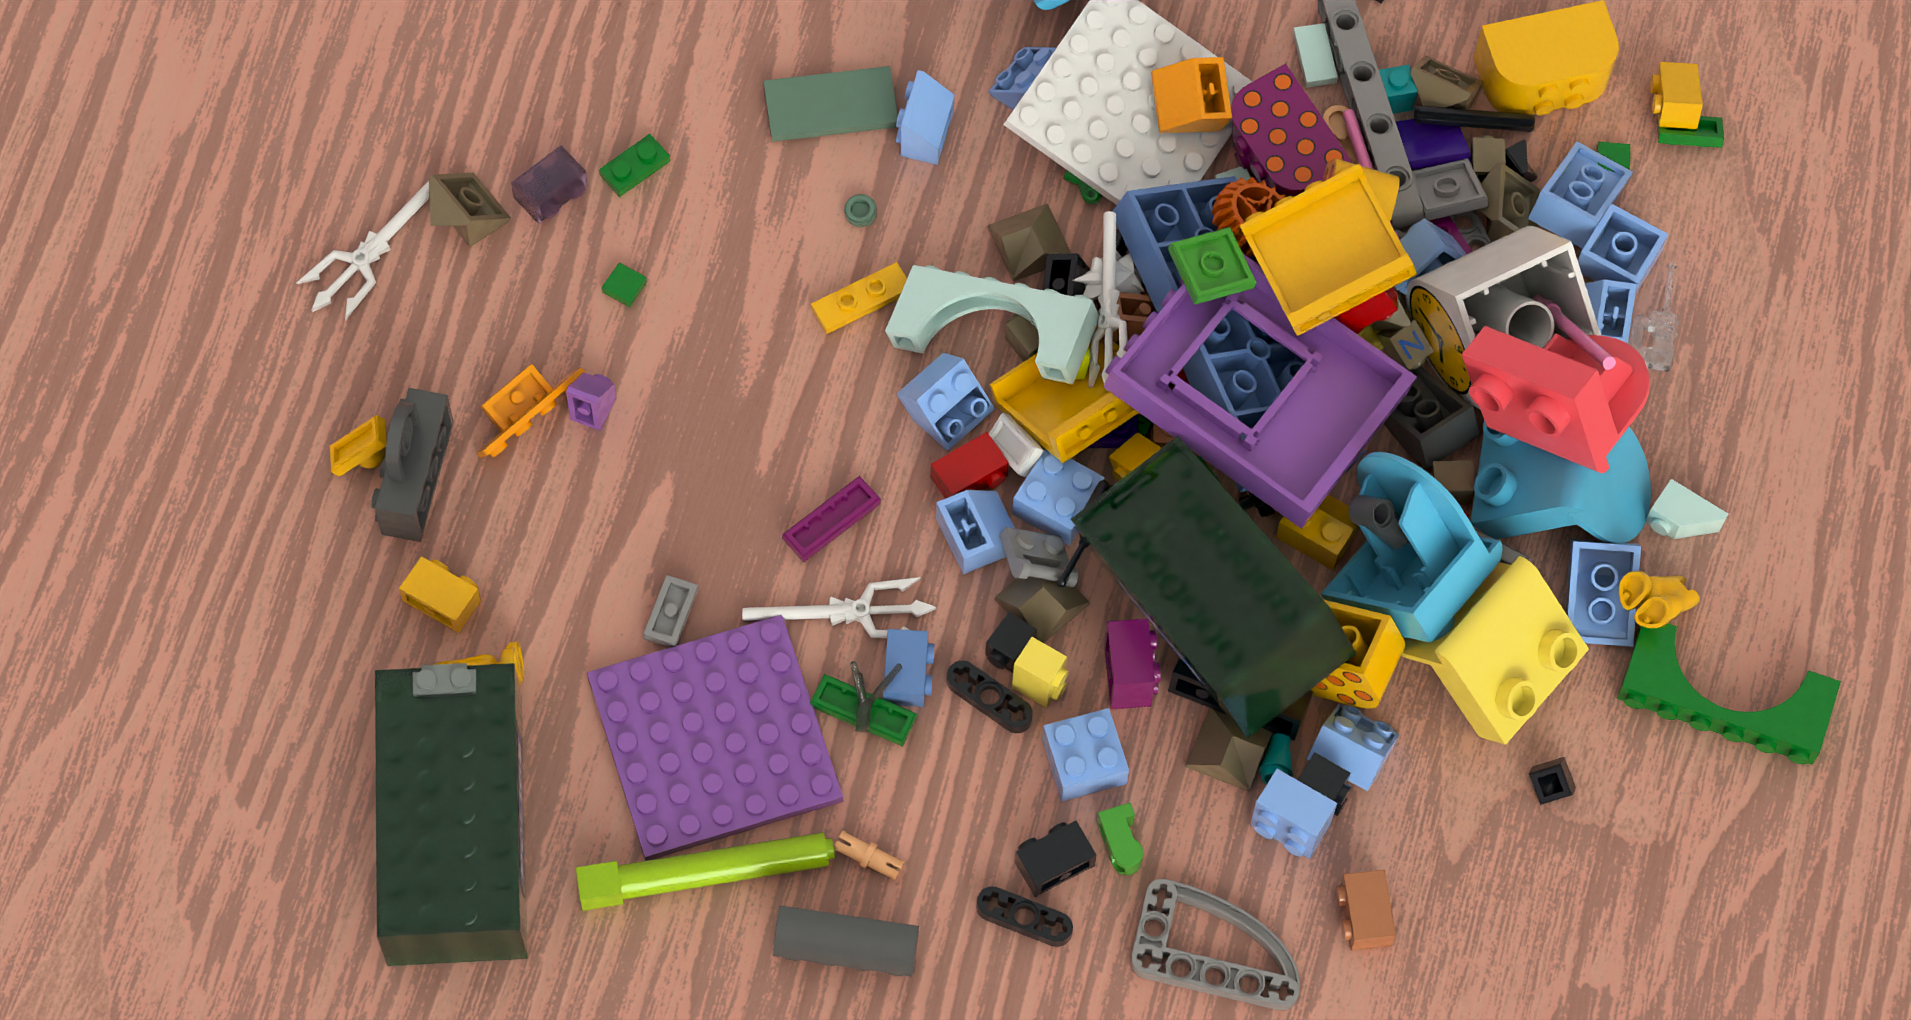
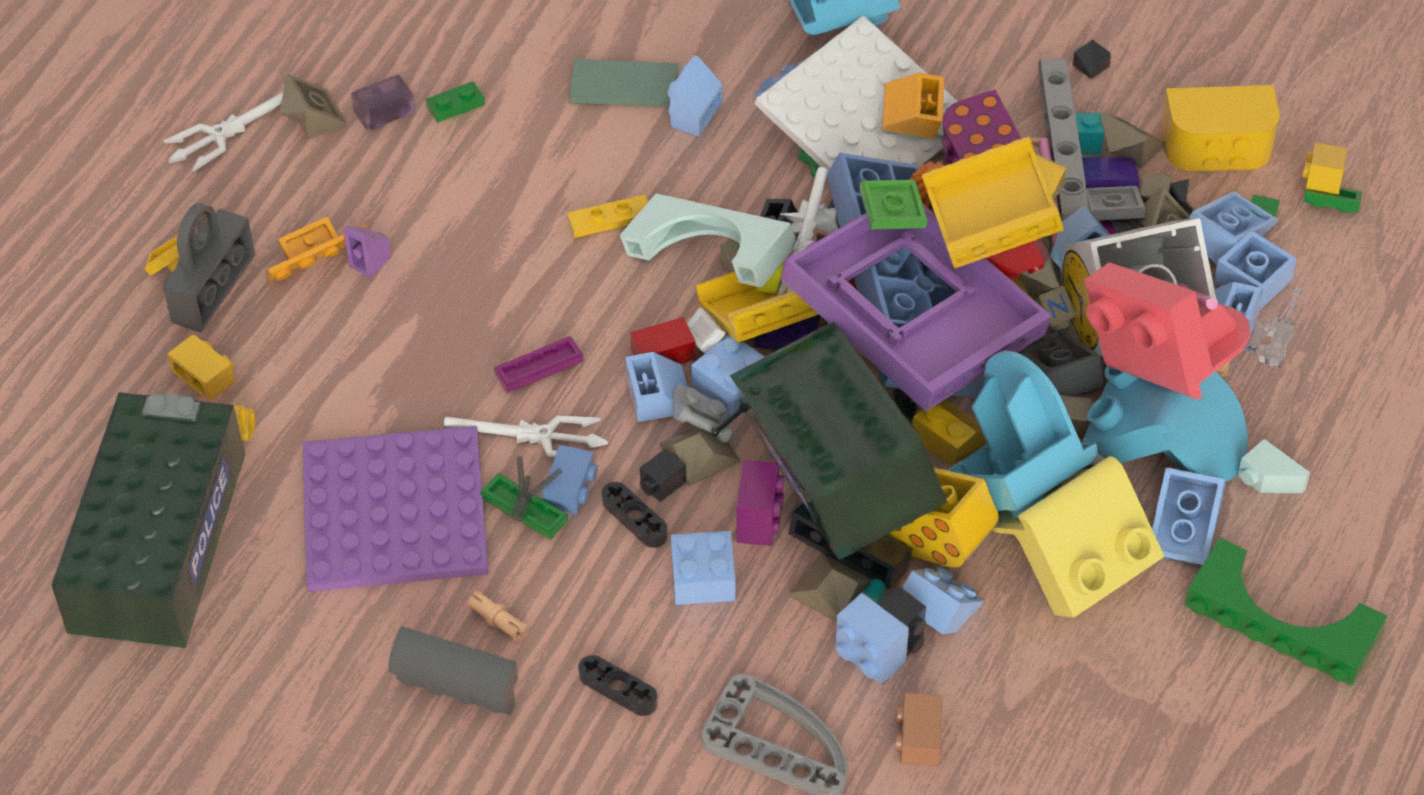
camera: 15 degrees right, 15 degrees down
(611, 883) = (269, 599): lime brick -> none
(624, 284) = (421, 179): green tile -> none
(671, 611) = (385, 409): light grey plate -> none
(860, 210) = (627, 157): sand green tile -> none
(946, 400) = (658, 293): light blue slope -> none
(1027, 240) = (751, 193): dark tan slope -> none
(1040, 673) = (678, 496): light yellow brick -> none
(1054, 857) = (656, 642): black brick -> none
(1121, 847) = (717, 645): bright green leg -> none
(1315, 55) = (1027, 104): light aqua tile -> none
(1378, 517) = (993, 413): dark grey piece -> none
(1474, 118) = (1149, 160): black axle -> none
(1552, 780) = (1111, 656): black slope -> none
(1659, 597) = (1232, 523): yellow piece -> none

